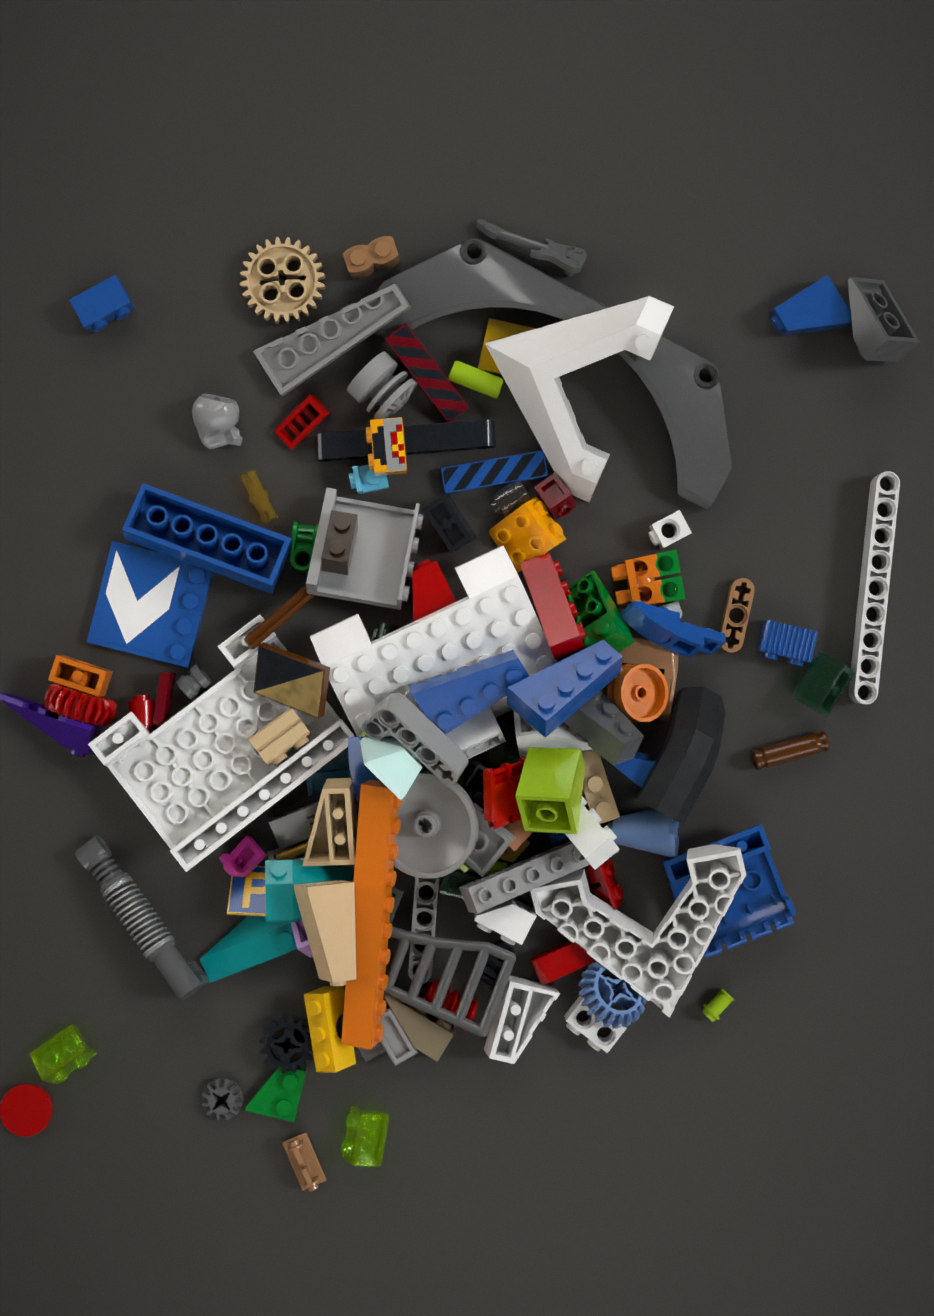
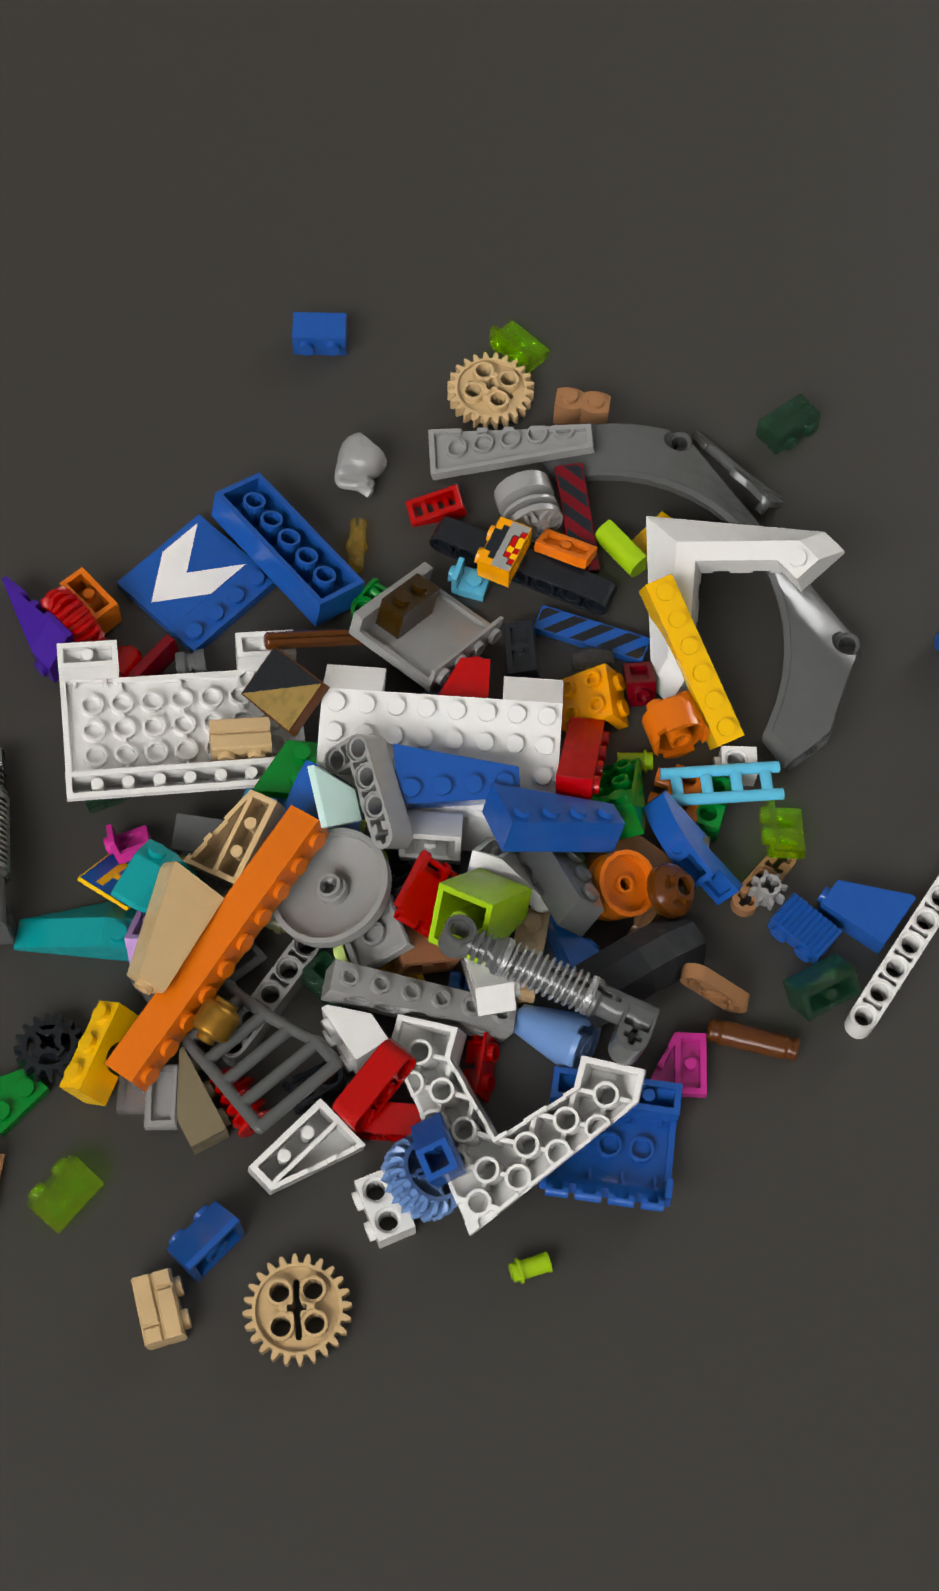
camera: 30 degrees right, 25 degrees down
(279, 216) = (518, 345): none -> clear neon green bracket
(334, 744) = (283, 770): none -> green wing
(403, 972) = (216, 1020): none -> pearl gold head
(434, 411) = (565, 548): none -> orange plate
(483, 1176) = (160, 1308): none -> tan brick
(486, 1117) = (205, 1240): none -> blue slope
(543, 951) = (374, 1085): none -> red beam
(553, 170) = (788, 424): none -> clear green brick
(593, 468) = (679, 631): none -> yellow arch
(594, 563) = (645, 757): none -> lime pin
(596, 1111) = (327, 1307): none -> tan gear
(605, 525) = (674, 725): none -> orange brick
(617, 979) = (437, 1151): none -> blue slope
(647, 821) = (565, 984): none -> dark grey piece
(670, 675) = (664, 890): none -> reddish brown piece
(673, 544) = (735, 771): none -> medium azure bar
(733, 568) = (782, 831): none -> clear neon green bracket
(740, 628) = (763, 886): none -> light grey gear
(747, 734) = (714, 988): none -> medium nougat beam
(749, 801) = (685, 1063): none -> dark pink wing
(827, 602) = (864, 911): none -> blue slope

